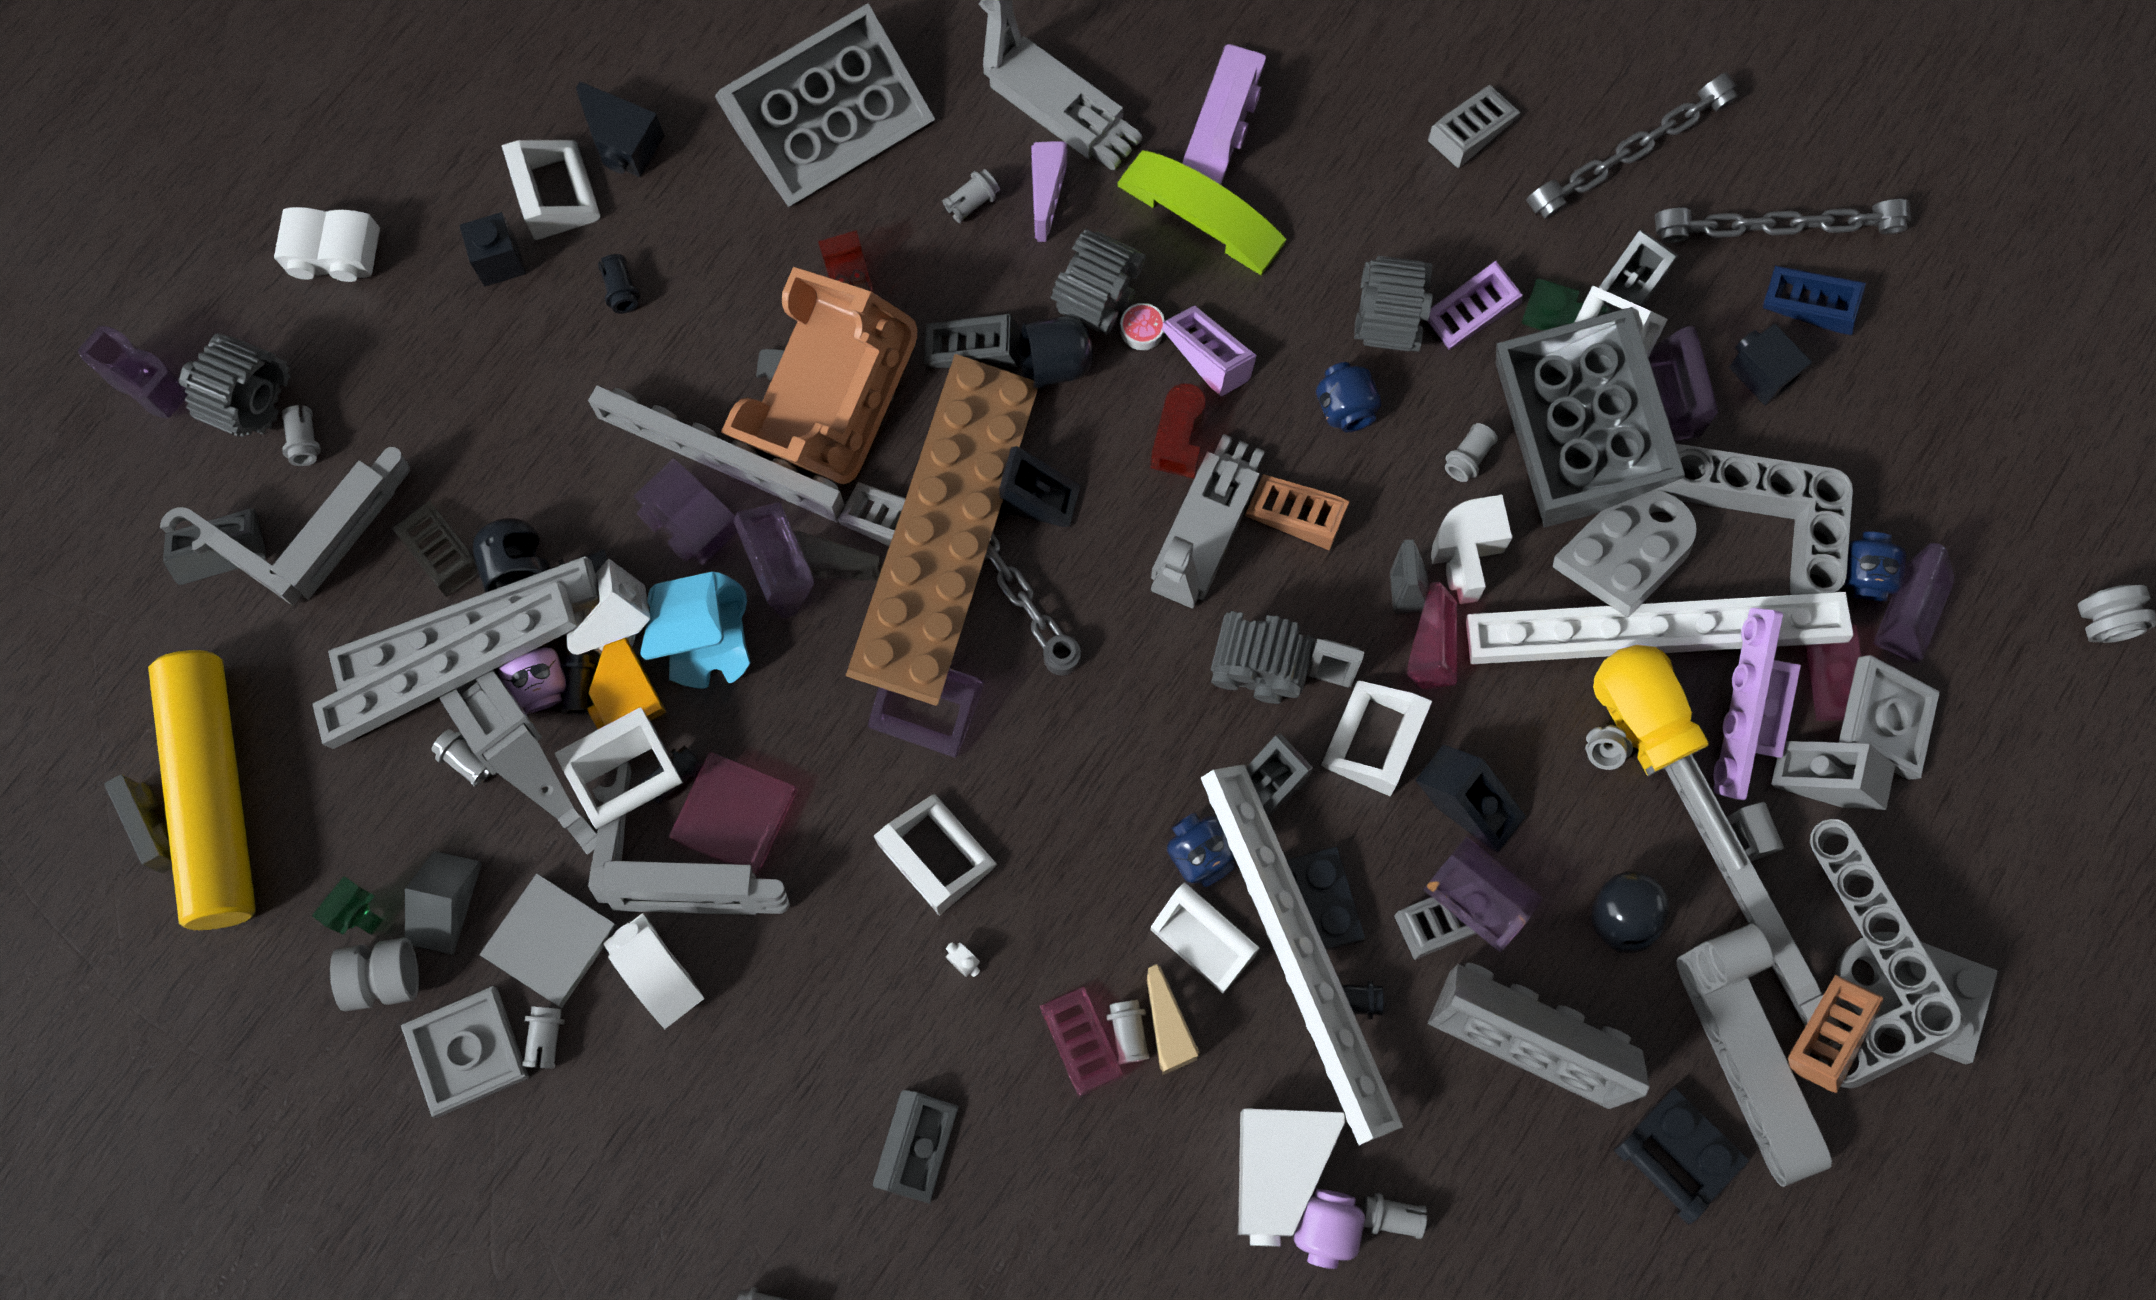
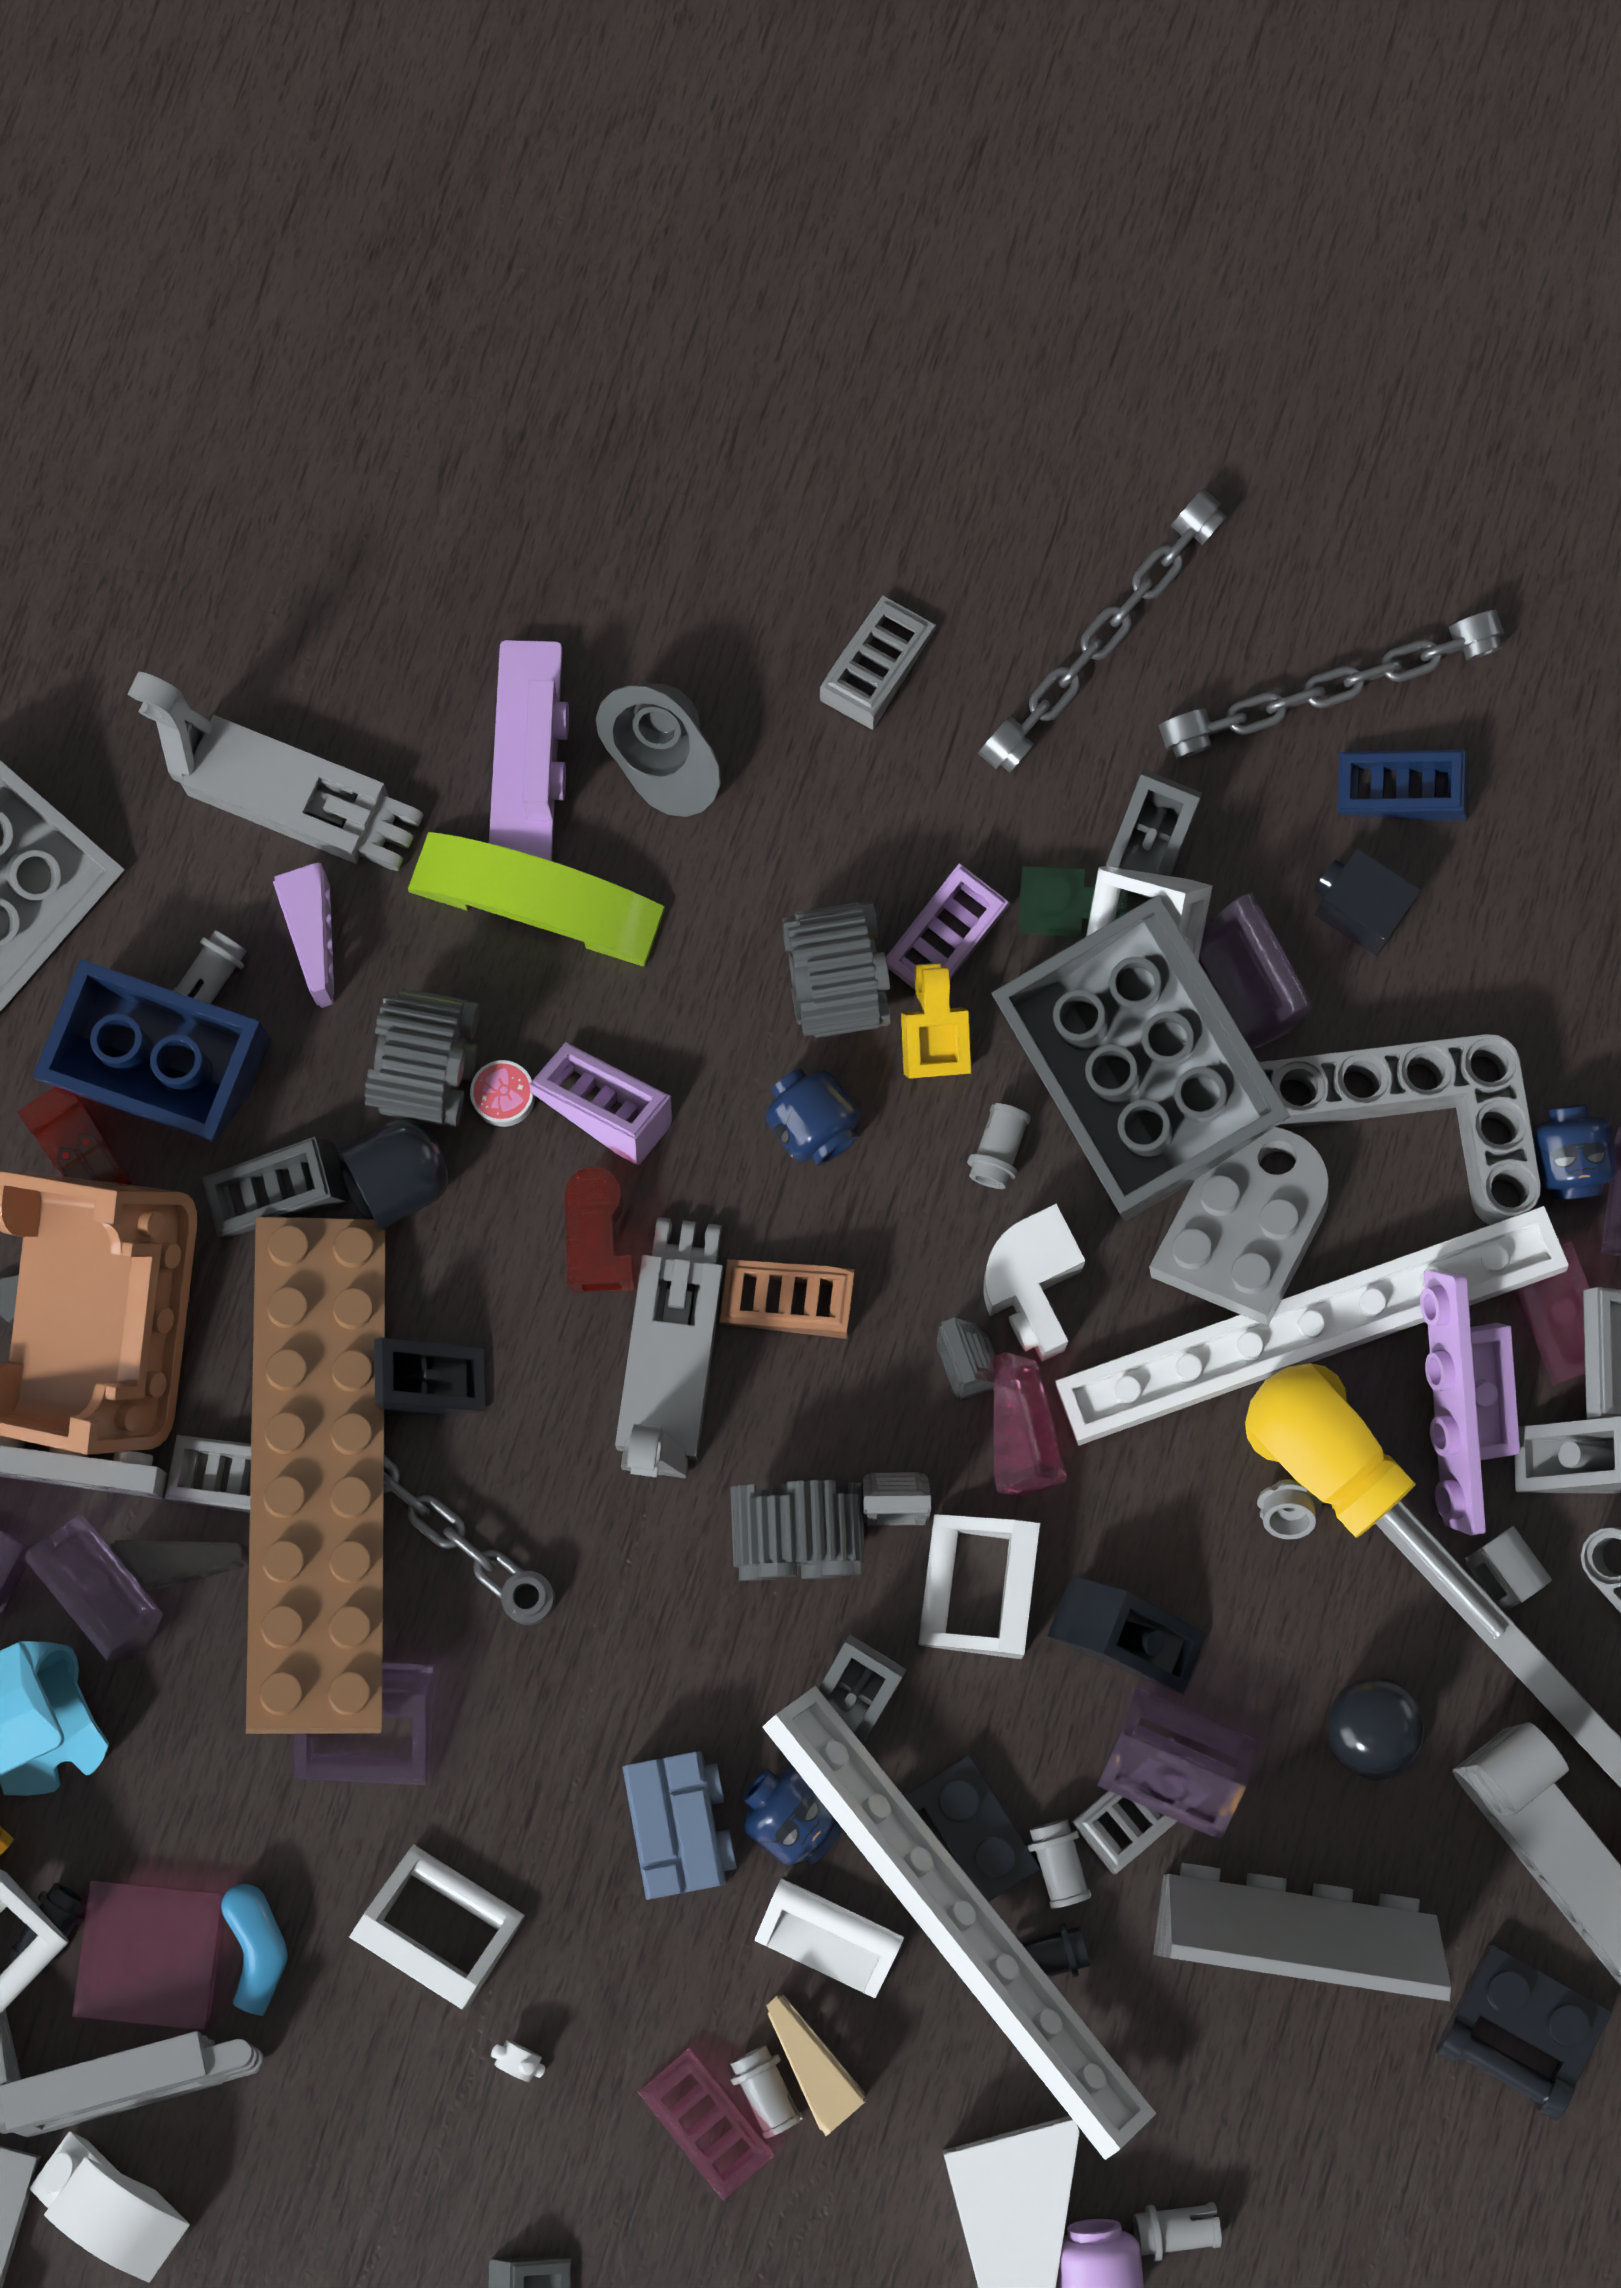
camera: 15 degrees left, 5 degrees up
(811, 827) = (262, 1946): none -> dark azure arm
(921, 227) = (152, 1052): none -> dark blue slope
(1120, 831) = (677, 1825): none -> sand blue brick
(1313, 134) = (660, 746): none -> dark grey piece
(1380, 938) = (1059, 1863): none -> light grey pin
(1448, 368) = (936, 1035): none -> yellow plate

